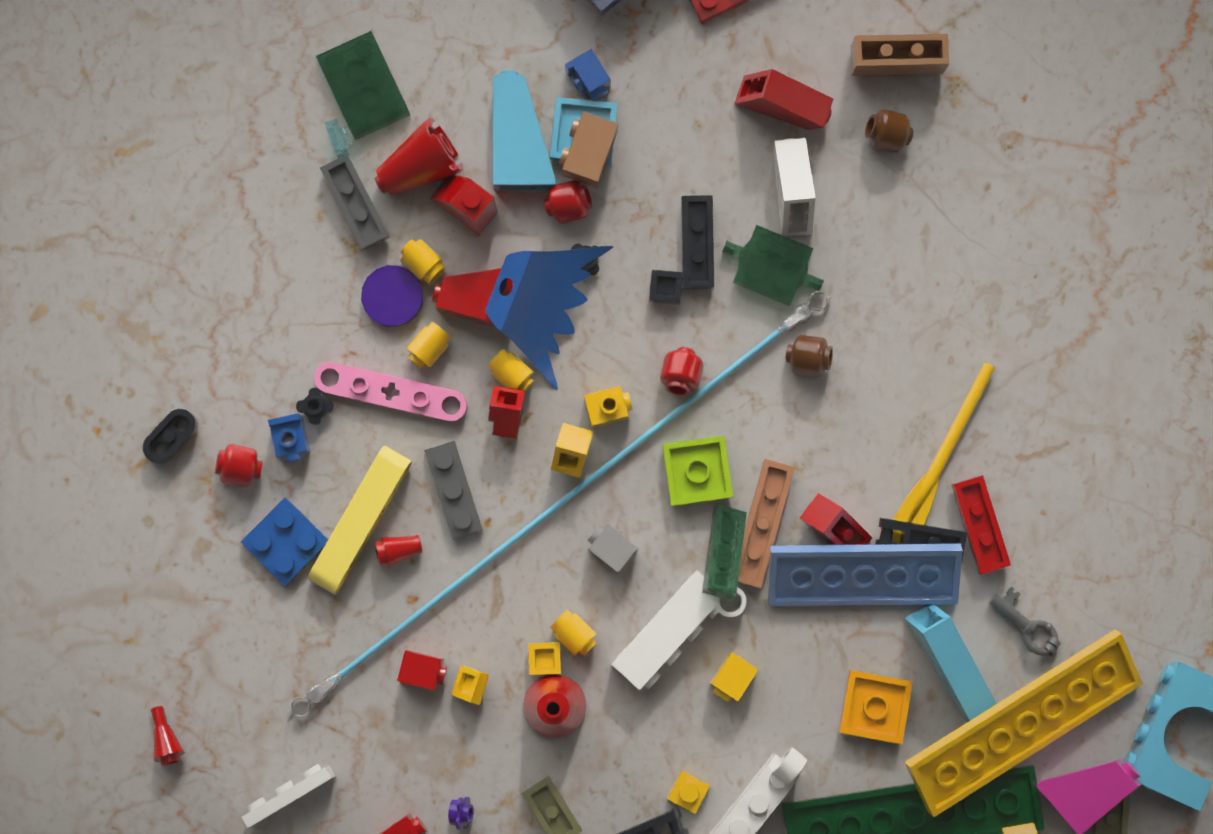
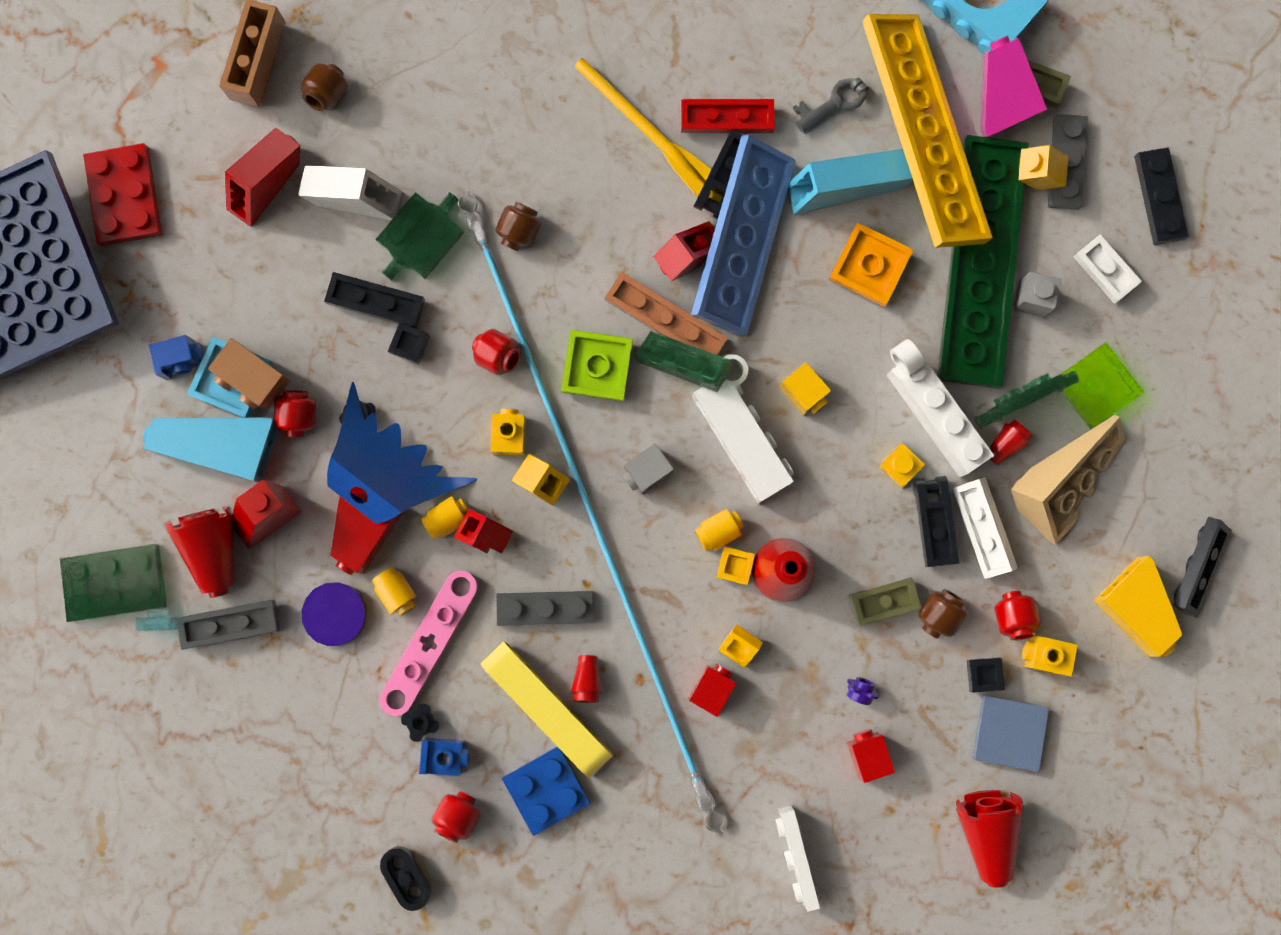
camera: 70 degrees left, 0 degrees up
(422, 261) = (308, 573): yellow brick -> none

